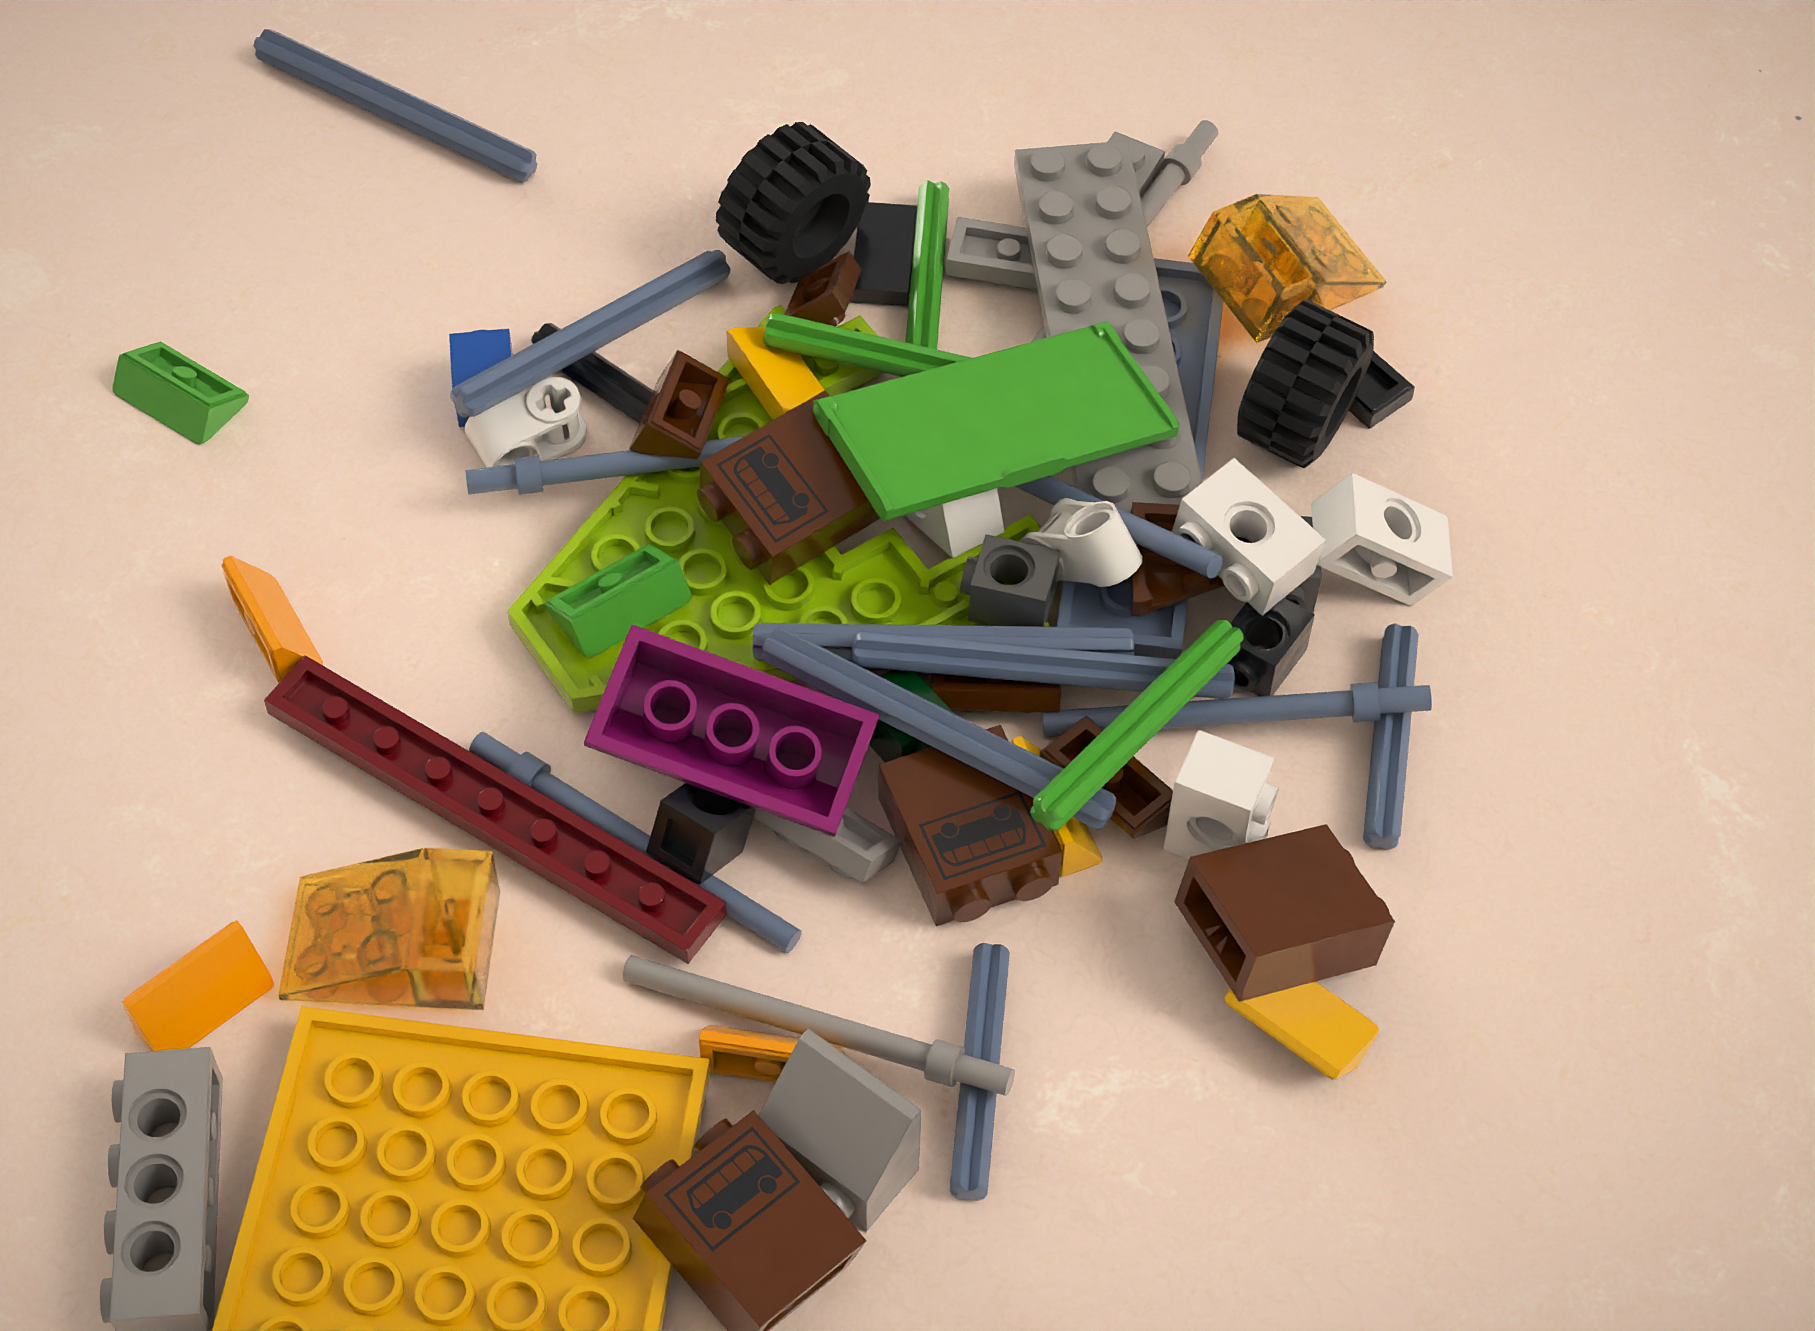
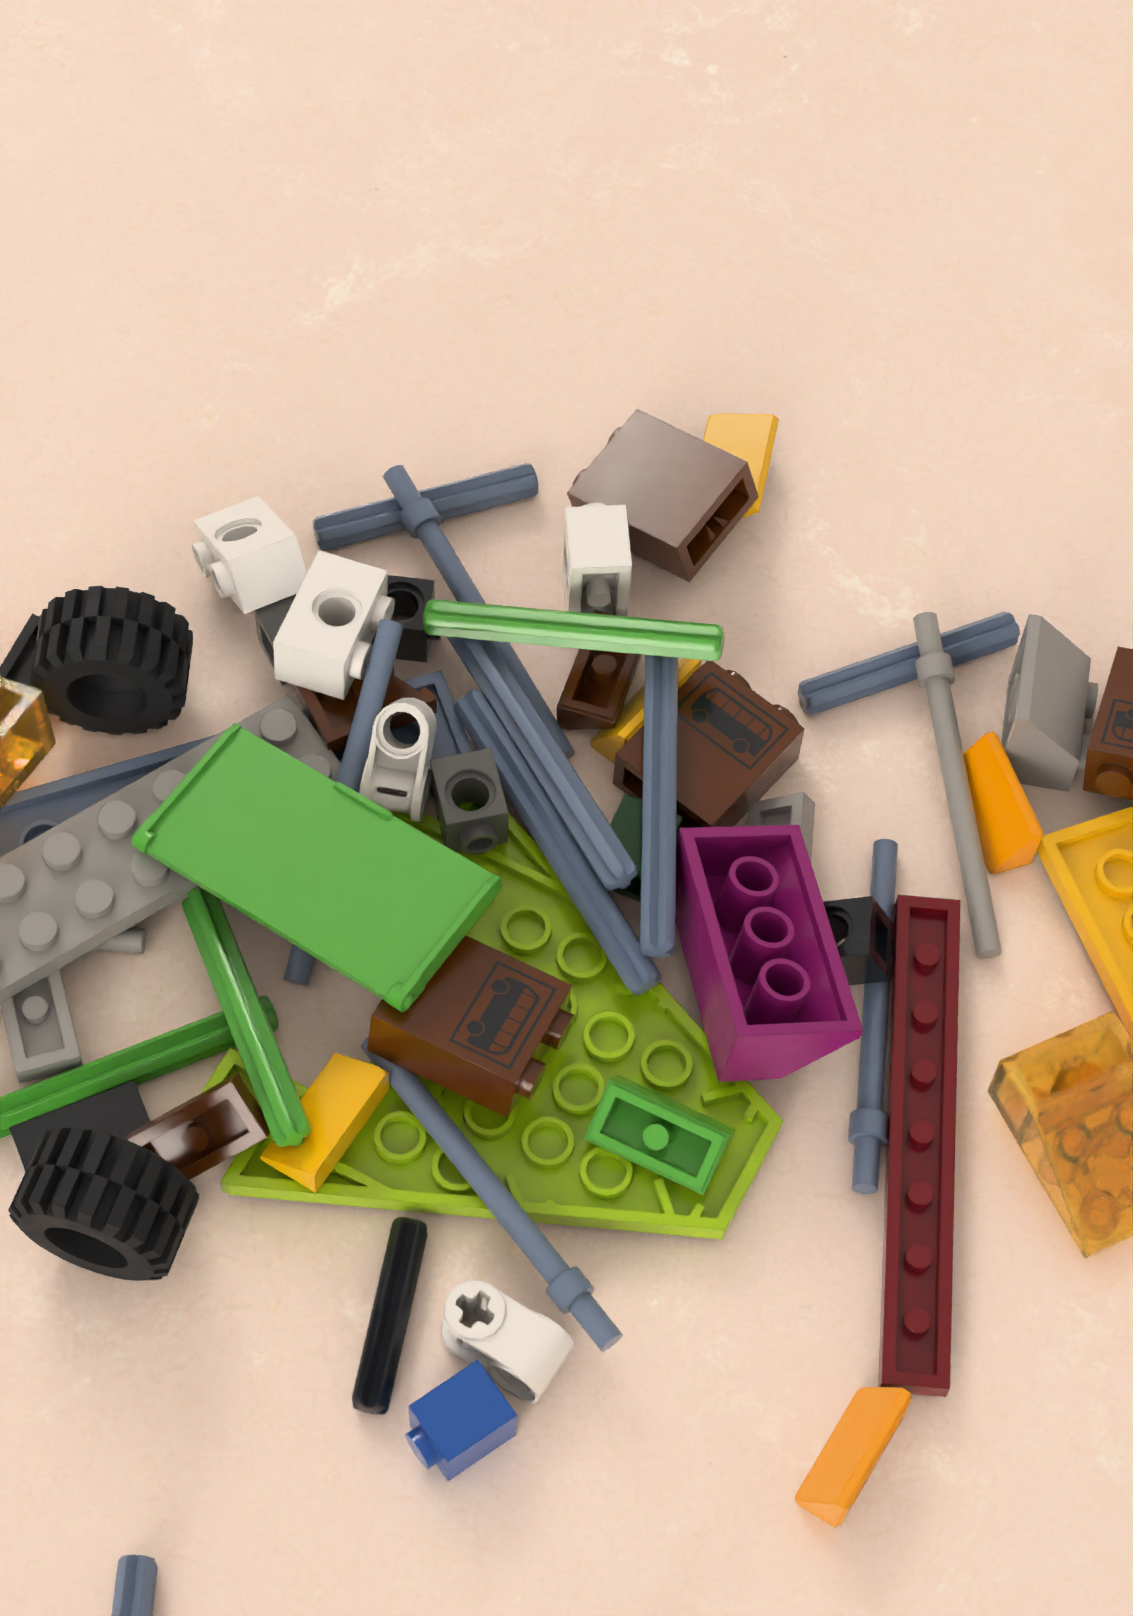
camera: 120 degrees left, 5 degrees up
(589, 334) = (367, 1325): sand blue axle -> none
(680, 409) = (423, 1187): reddish brown slope -> none

